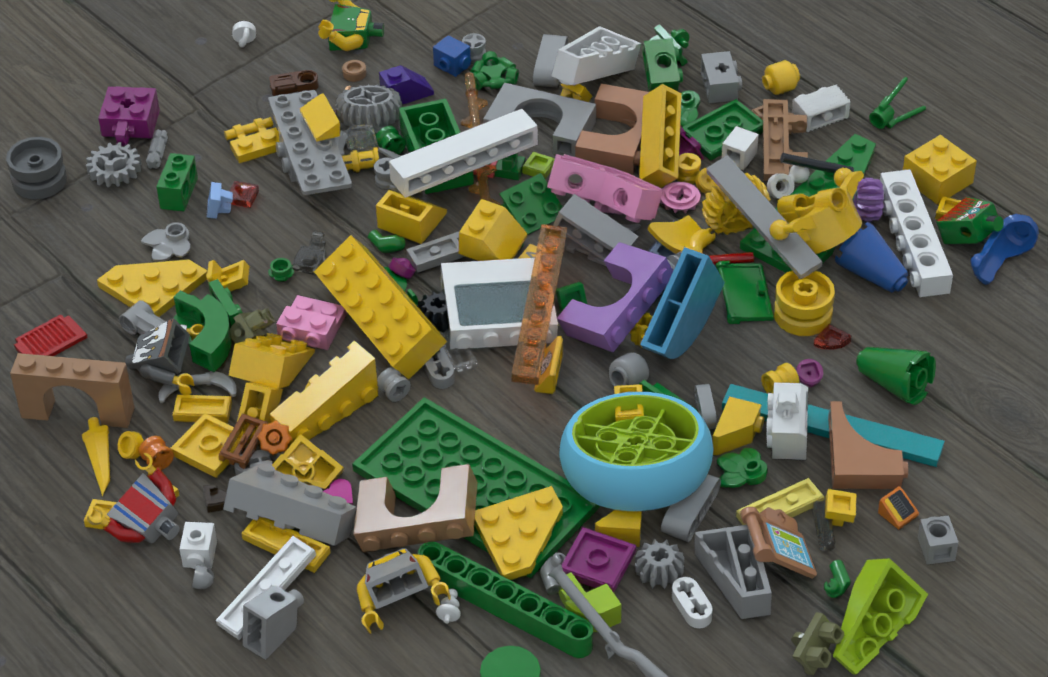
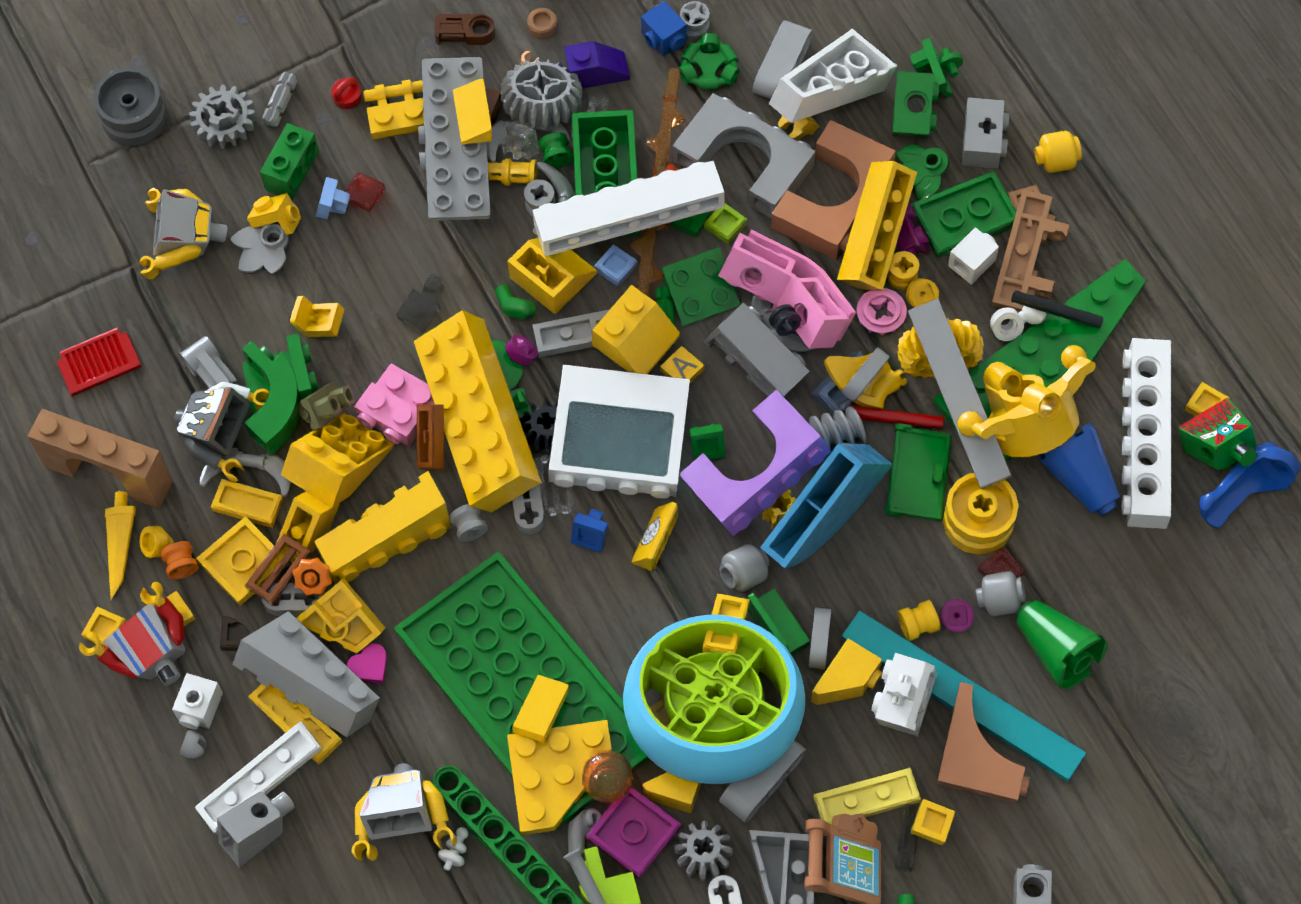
camera: 15 degrees right, 20 degrees up
(98, 237) = (181, 229): none -> torso
(129, 113) = (256, 43): magenta hinge -> none
(152, 282) = (231, 307): yellow plate -> none
(168, 214) = (275, 209): none -> yellow bracket
(210, 136) = (346, 93): none -> red tile
(281, 269) = (381, 312): green plate -> none
(344, 326) = (430, 436): none -> dark orange tile
(448, 518) = (478, 741): arch -> none
(460, 205) = (616, 265): none -> light blue tile
(494, 488) = (540, 708): none -> yellow tile
(495, 372) = (590, 531): none -> blue tile
(539, 305) = (661, 455): clear orange plate -> none
(565, 519) = (607, 776): none -> clear orange hair
(609, 202) = (785, 320): none -> black bush
(683, 228) = (865, 374): none -> light grey beam
(742, 468) = (834, 730): green plate -> none
(822, 107) = (1094, 209): white brick -> none
(839, 351) = (1001, 593): none -> light grey head
(869, 199) = (1108, 374): medium lavender gear -> none
(884, 113) = (1169, 234): green plant -> none
(897, 508) = (1001, 836): slope -> none
(940, 168) = (1209, 342): yellow brick -> none

